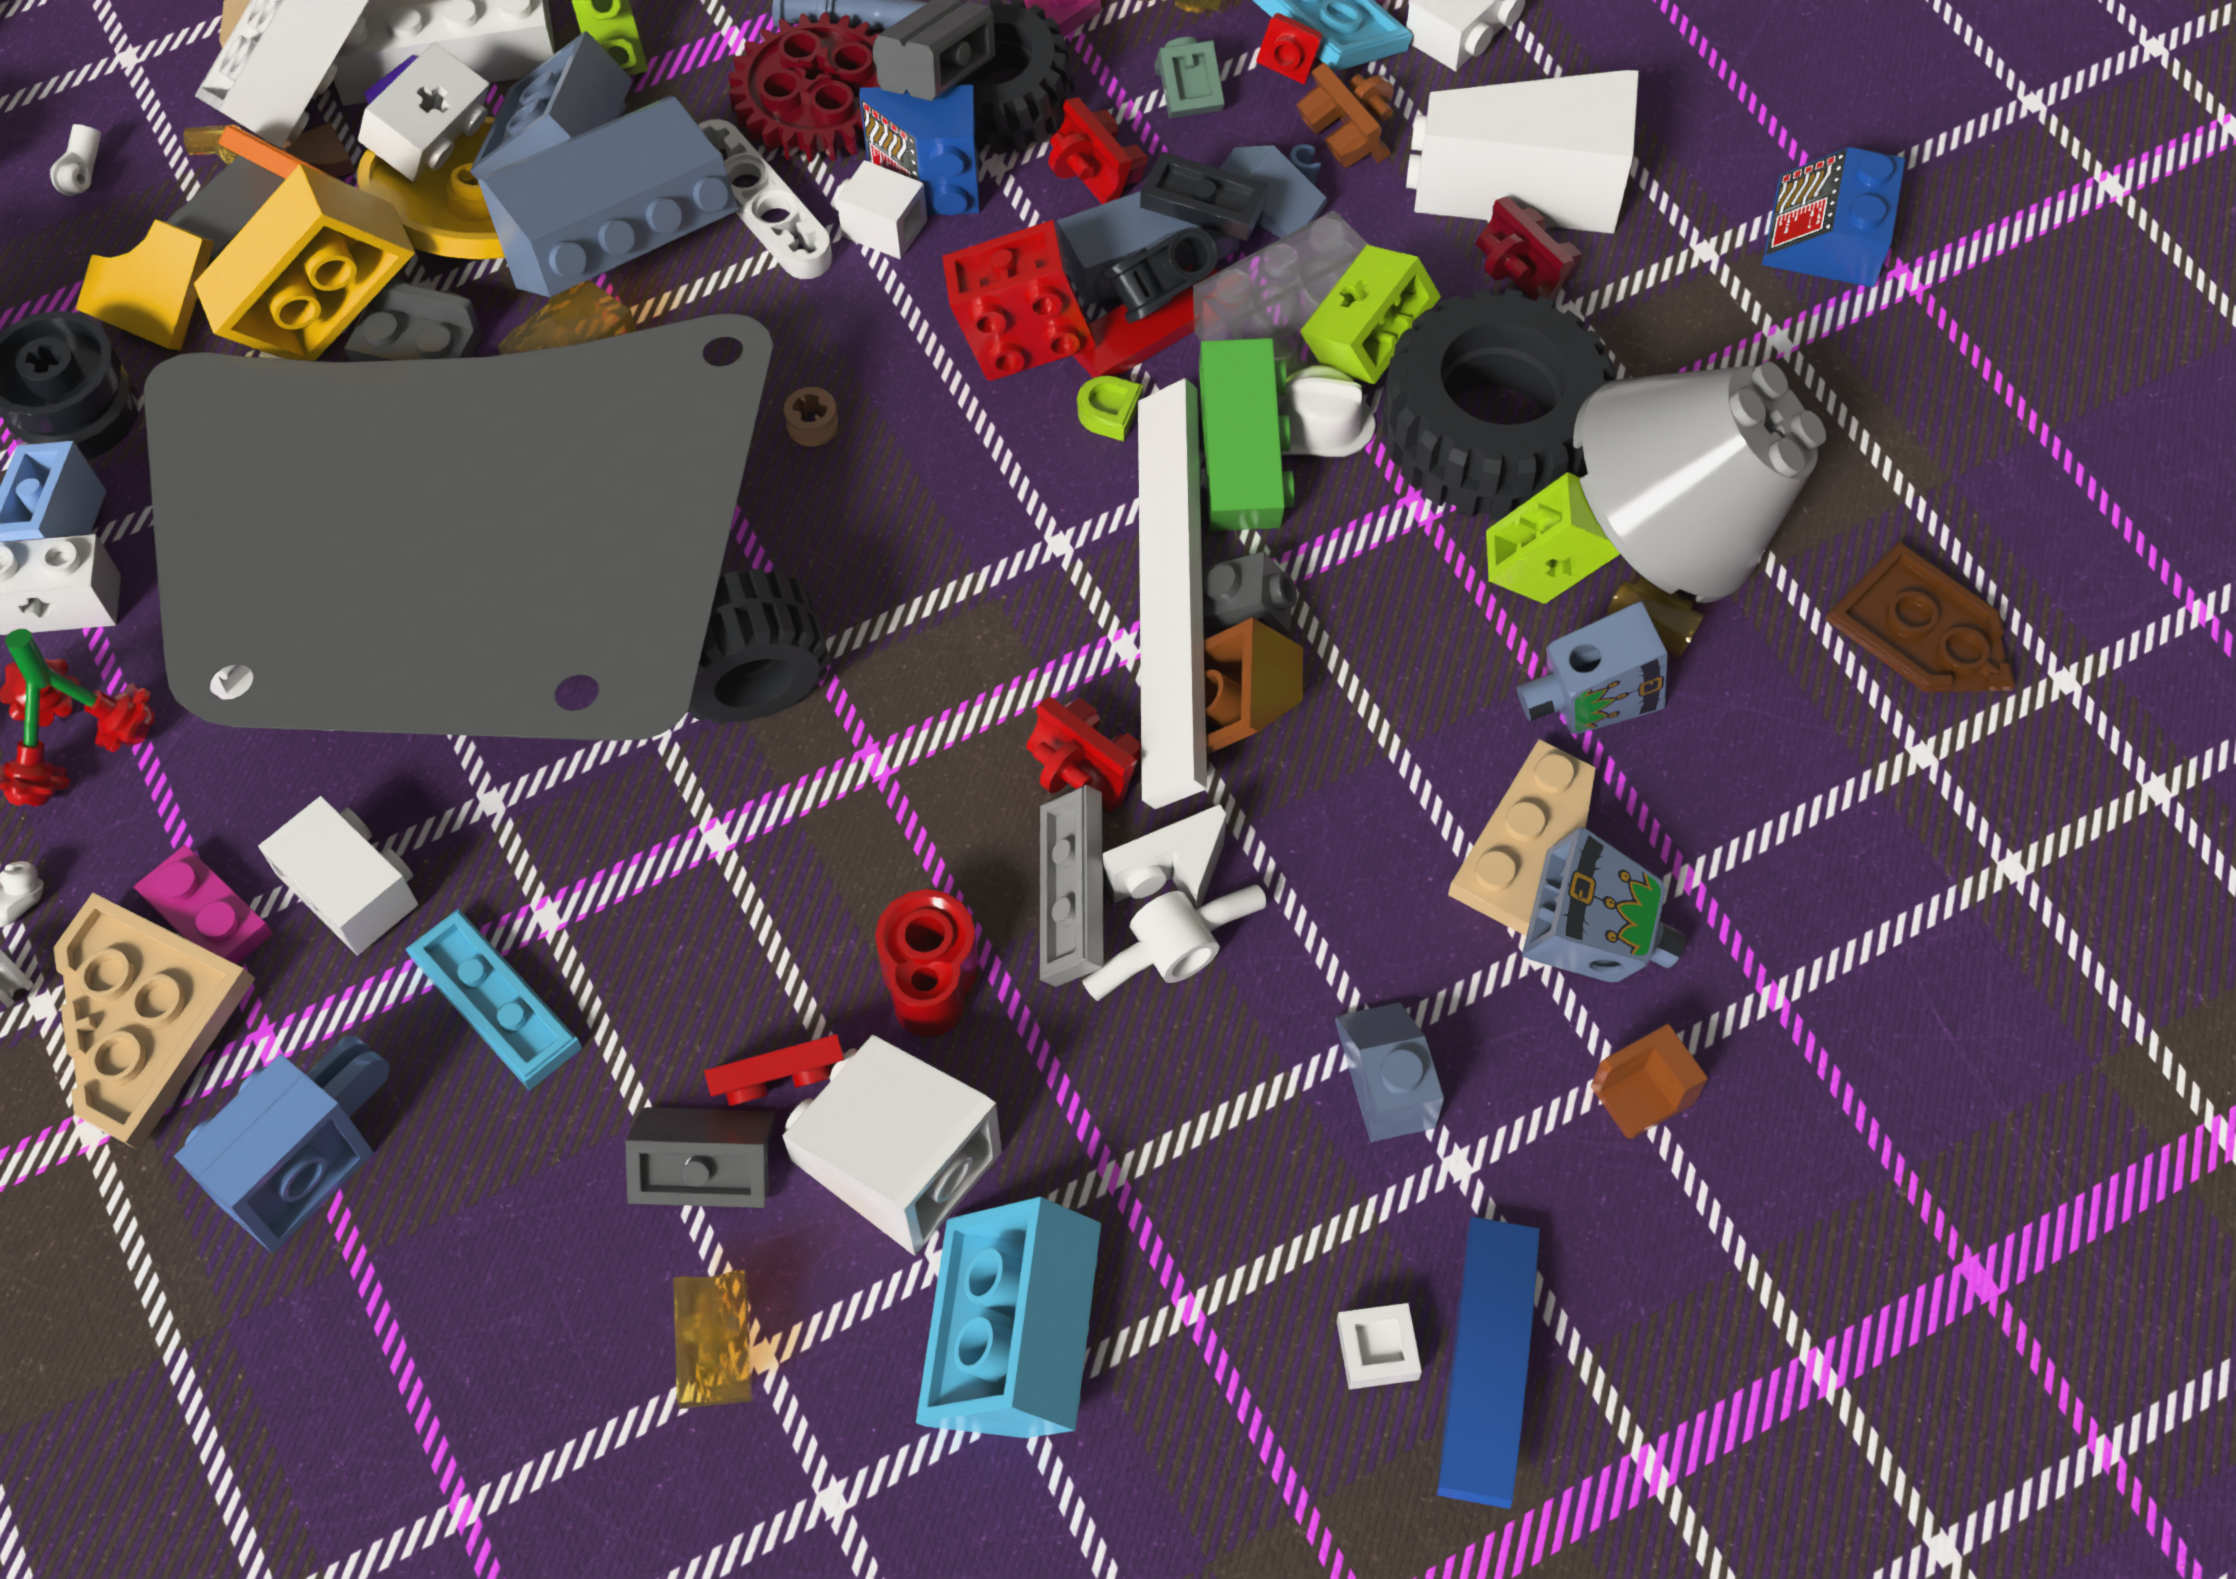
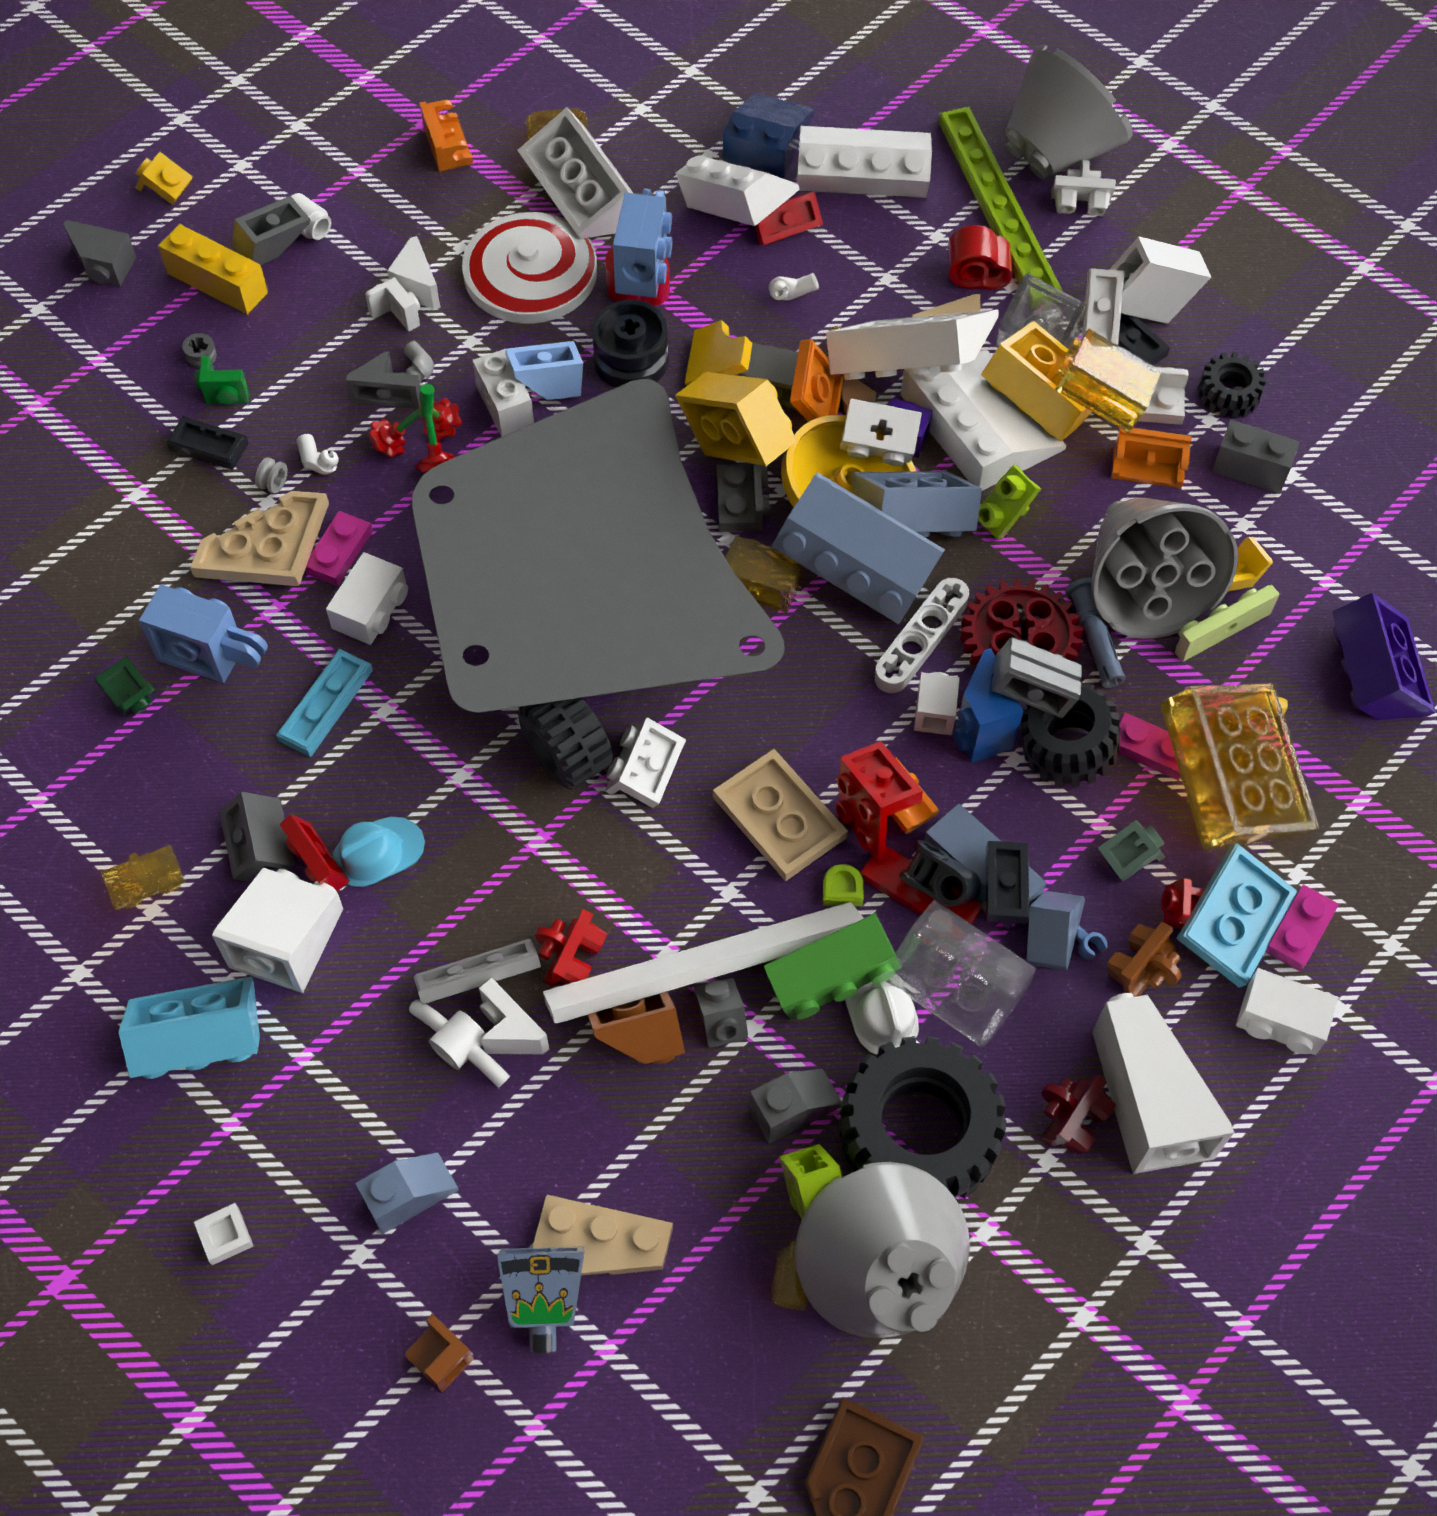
camera: 70 degrees right, 0 degrees up
(320, 1301) = (126, 688): none -> dark green bracket
(799, 982) = (378, 849): none -> medium azure piece
(811, 400) = (775, 716): medium nougat bush -> none
(833, 575) = (645, 762): none -> white bracket
(927, 959) = (400, 908): red piece -> none
(971, 440) = (780, 814): none -> tan plate
(1090, 150) = (1050, 800): red hips -> none
(1369, 312) = (954, 1014): lime brick -> none
(1415, 554) = (792, 1102): none -> dark grey slope
(1489, 1363) = (226, 1299): blue slope -> none
(1601, 673) = (726, 1247): sand blue torso -> none
(1836, 216) = (1206, 1328): blue slope -> none

